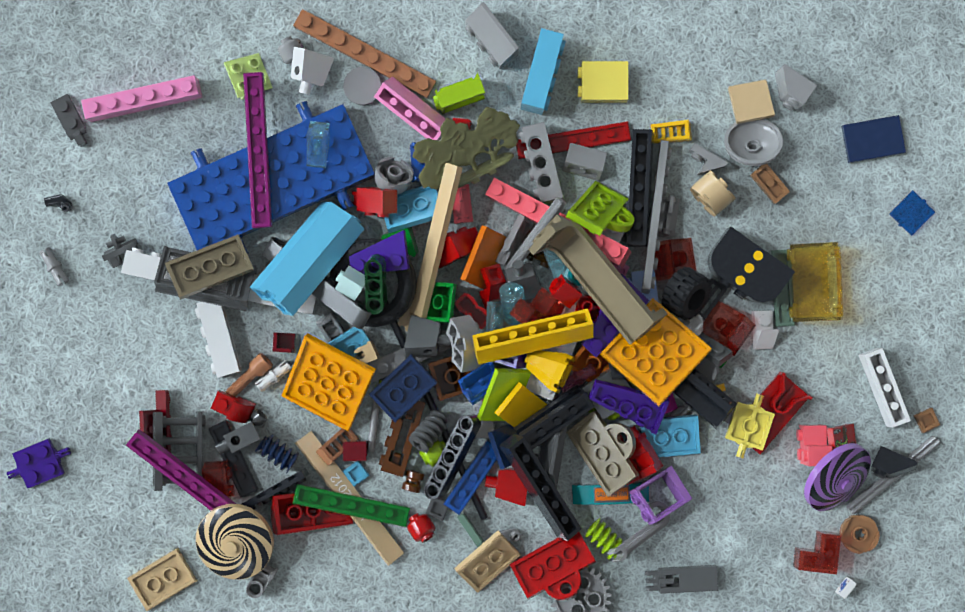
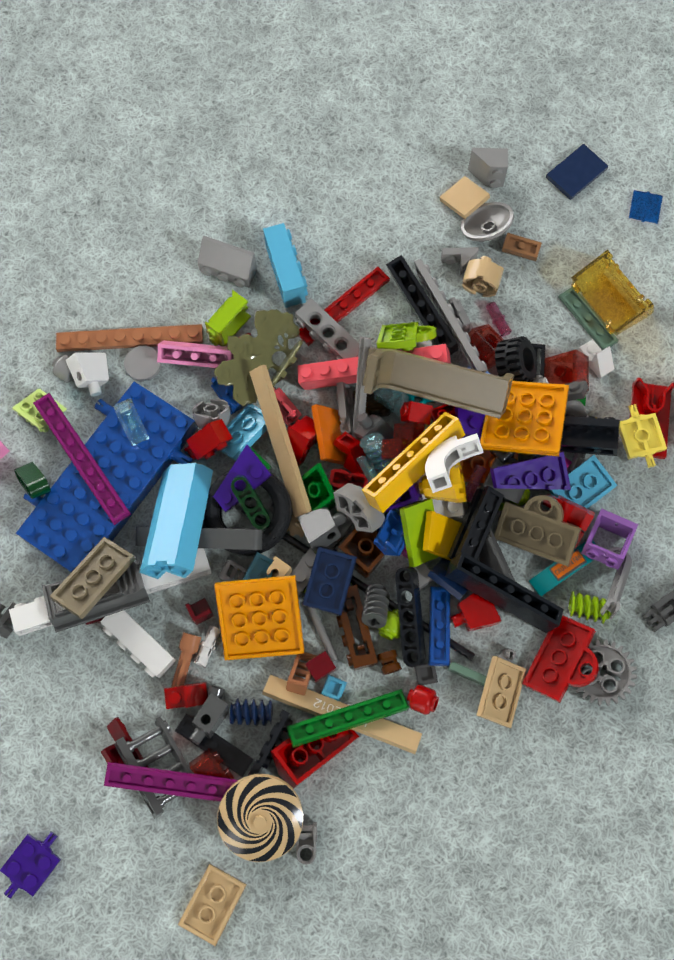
camera: 25 degrees left, 15 degrees down
(205, 143) = (32, 480): none -> dark green beam
(350, 282) = (227, 516): light aqua brick -> none
(558, 350) = (446, 456): none -> white arch
(584, 161) = (364, 315): light grey panel -> none
(603, 82) = (339, 247): light yellow brick -> none
(679, 138) = (432, 251): yellow slope -> none
(702, 239) = (498, 319): none -> clear pink axle
(747, 268) = (550, 314): black brick -> none

